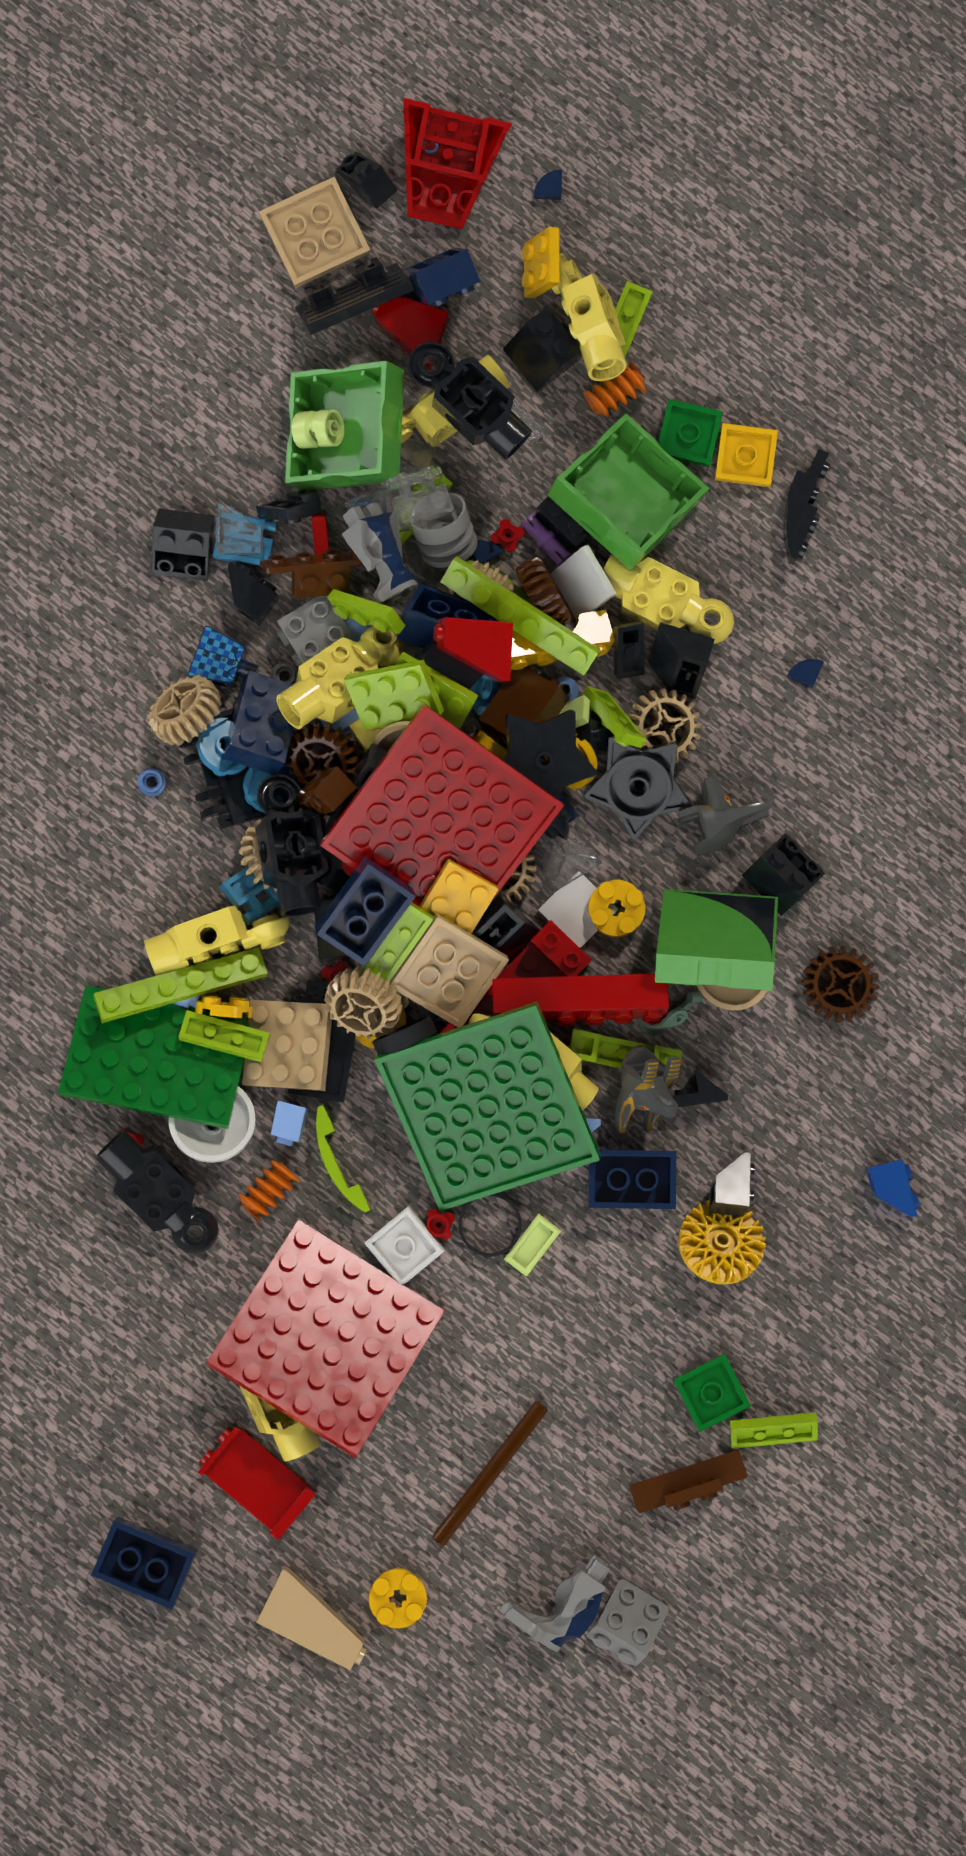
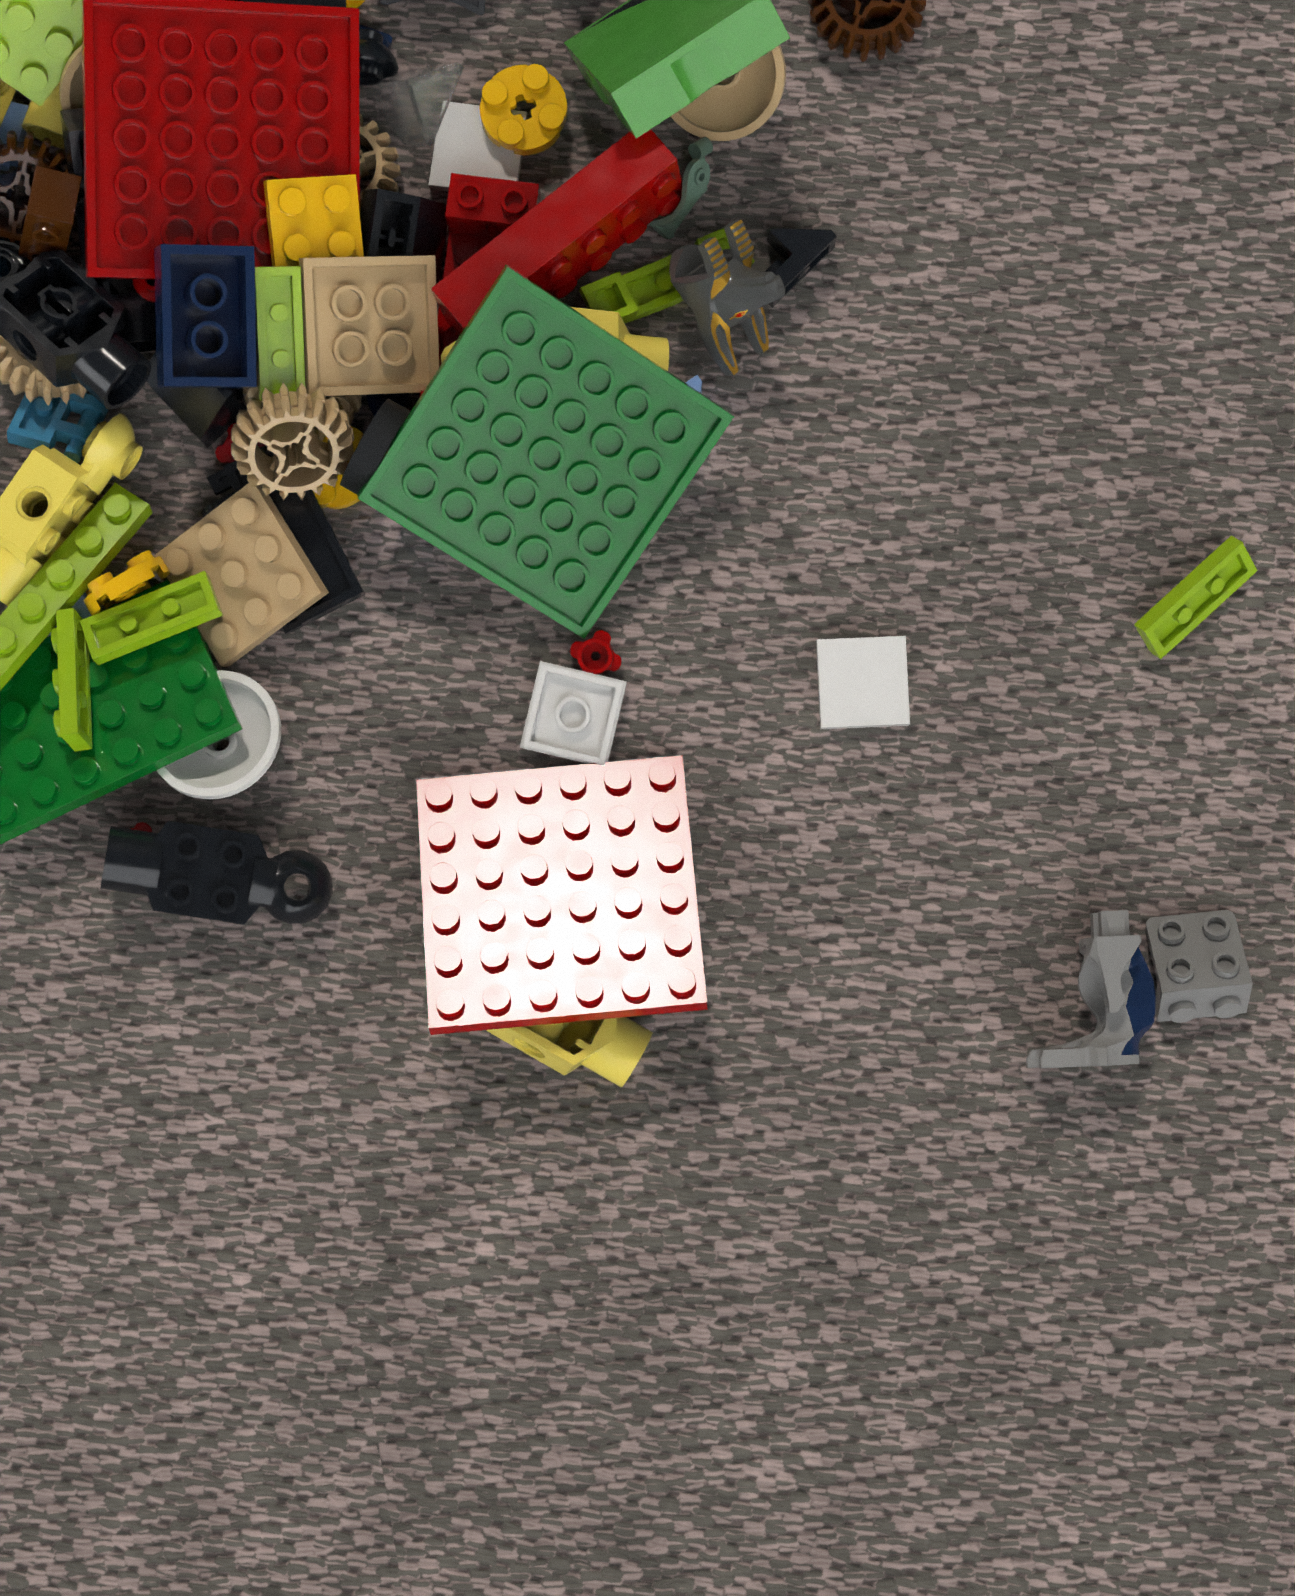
camera: 30 degrees left, 0 degrees up
(144, 1562) = (541, 1345): dark blue brick -> none
(159, 1040) = (72, 681): none -> lime plate
(257, 1480) = (605, 1138): red panel -> none
(268, 1189) = (349, 769): orange piece -> none
(289, 1123) = (313, 665): light blue slope -> none
(310, 1622) = (801, 1262): tan slope -> none
(323, 1128) = (460, 695): lime slope -> none
(409, 1585) = (889, 1177): yellow plate -> none
(489, 1473) = (888, 912): reddish brown axle -> none
(496, 1253) = (667, 564): black tyre -> none
(532, 1245) = (729, 596): yellowish green tile -> none
(567, 1343) = (862, 682): none -> white tile
(633, 1180) = (793, 420): dark blue brick -> none
(689, 1482) = (1140, 739): reddish brown bracket -> none
(711, 1392) = (1085, 609): green plate -> none
(720, 1246) = (959, 415): yellow wheel -> none
(731, 1188) = (923, 340): slope -> none
(891, 1185) = (1116, 197): blue slope -> none

